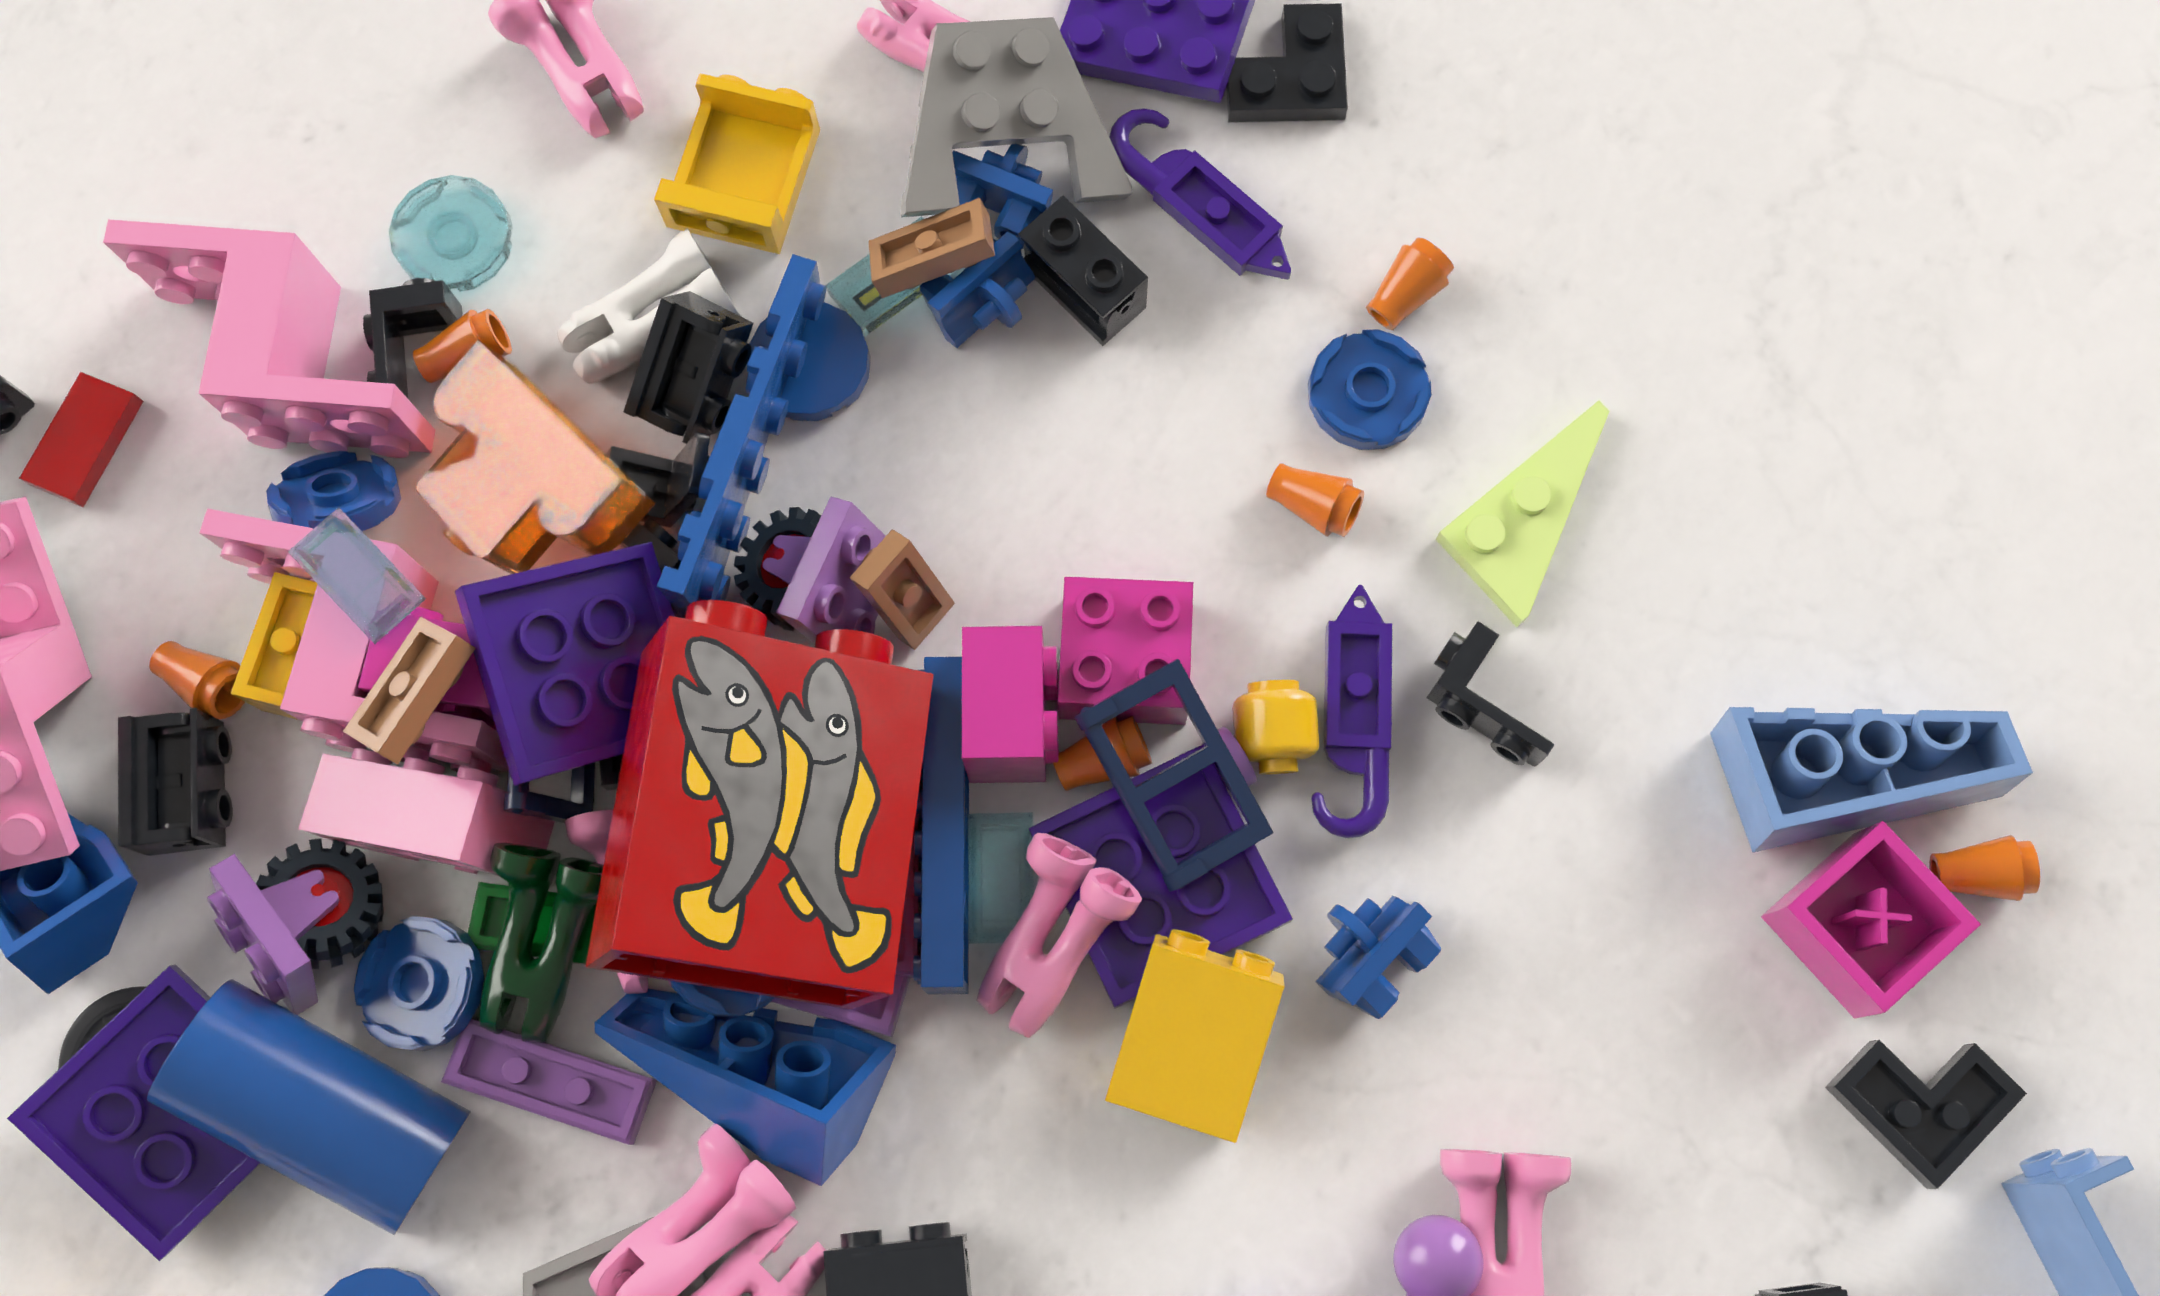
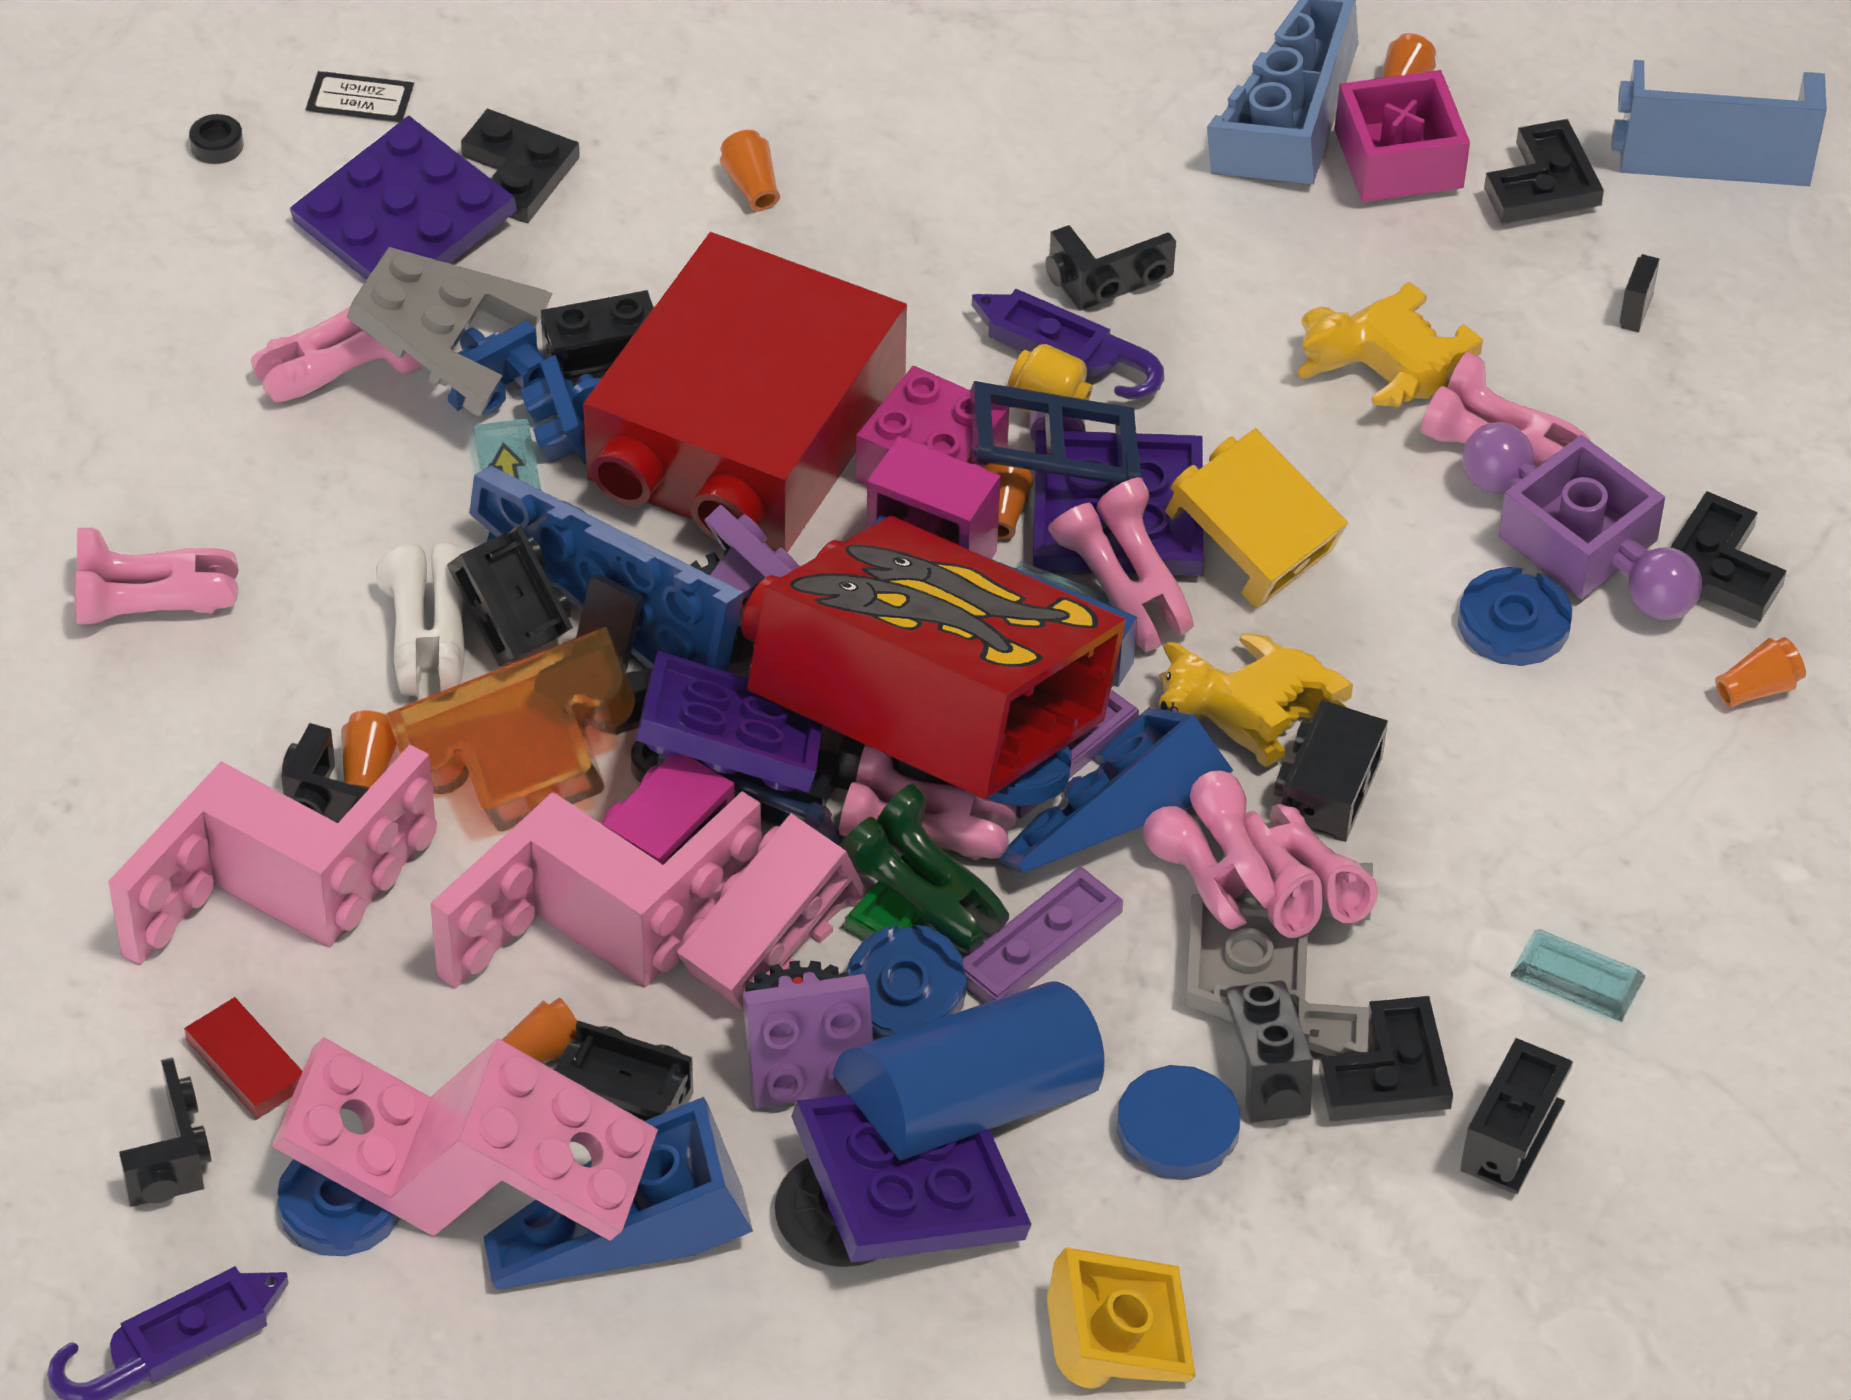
camera: 65 degrees left, 25 degrees down
(274, 643) = (564, 953): yellow panel -> none
(332, 481) = (439, 867): blue tile -> none
(356, 575) = (563, 819): clear light blue tile -> none
(409, 690) = (695, 803): medium nougat plate -> none
(451, 232) = (246, 729): clear light blue tile -> none
(741, 164) = (334, 516): yellow panel -> none
(902, 589) = (786, 527): medium nougat plate -> none
(931, 248) = (521, 408): medium nougat plate -> none
(955, 1158) = (1255, 700): none -> yellow animal
(1066, 438) = (744, 390): none -> red brick
(1204, 201) = (597, 253): dark purple plate -> none
(1317, 498) = (898, 281): orange cone -> none
(1368, 945) = (1253, 399): blue hips -> none
(1369, 389) = (818, 231): blue tile -> none
(1517, 524) = (980, 196): yellowish green wing -> none
(1549, 1061) = (1391, 342): none -> yellow animal

